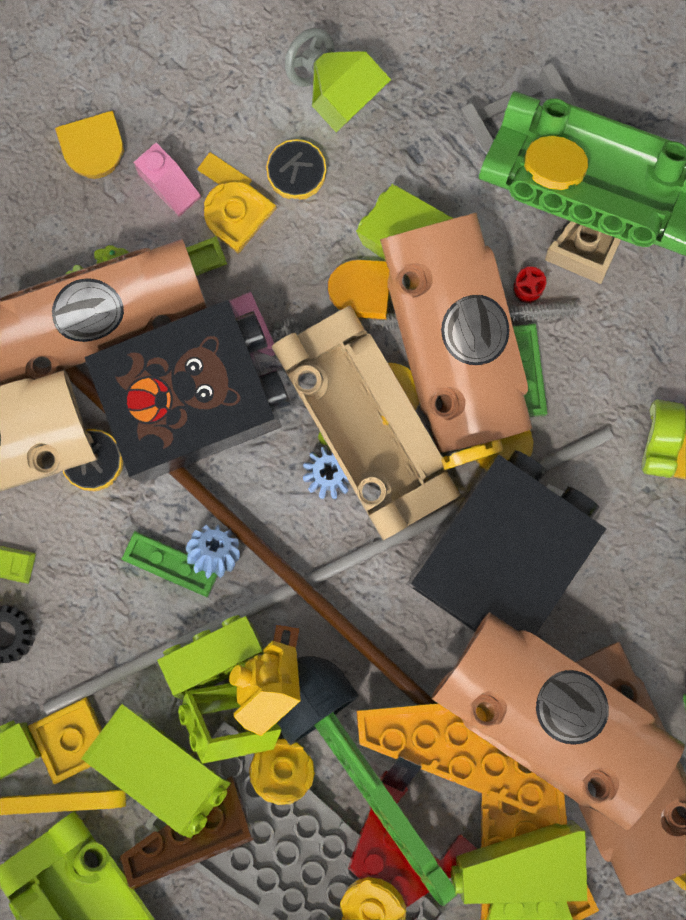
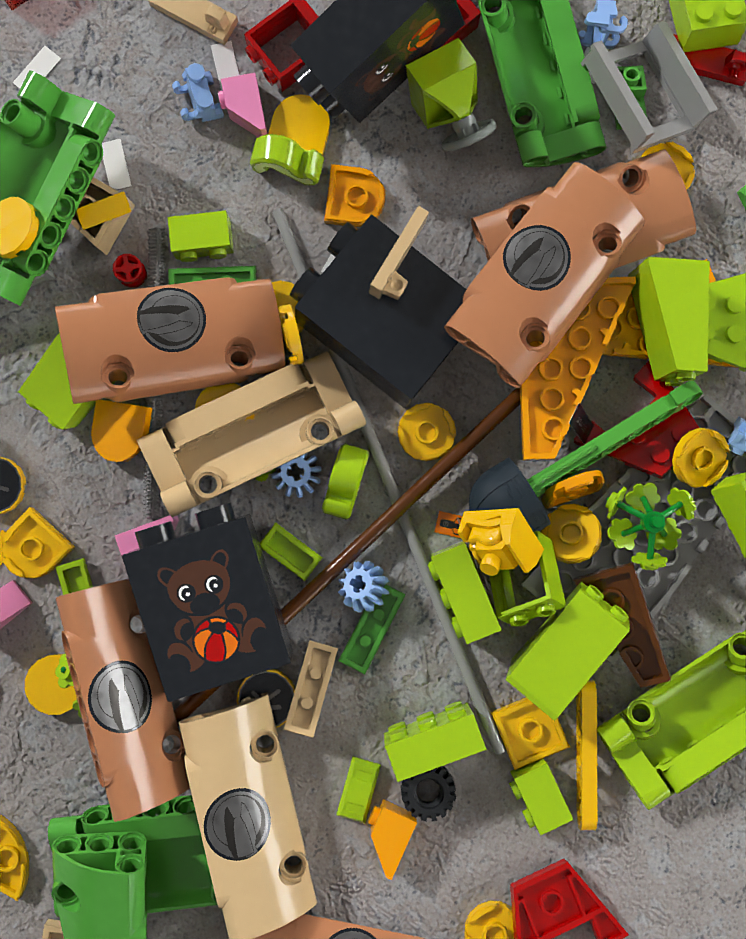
camera: 90 degrees left, 5 degrees up
(55, 634) = (433, 740): none -> lime brick
(91, 235) = (43, 687): none -> yellow tile
(104, 504) = (311, 689): none -> tan hinge
(245, 472) = (290, 551): none -> lime tile
(287, 872) = (659, 531): none -> lime plant
(323, 524) = (345, 481): none -> lime animal
(331, 771) = (573, 488): none -> light orange tile
(382, 609) = (426, 432): none -> yellow tile
(534, 548) = (387, 279): none -> tan hinge
(573, 354) = (200, 236): none -> lime piece
(587, 252) = (103, 210): none -> yellow sticker
(633, 513) = (353, 196): none -> light orange tile
(642, 261) = (115, 164): none -> white sticker

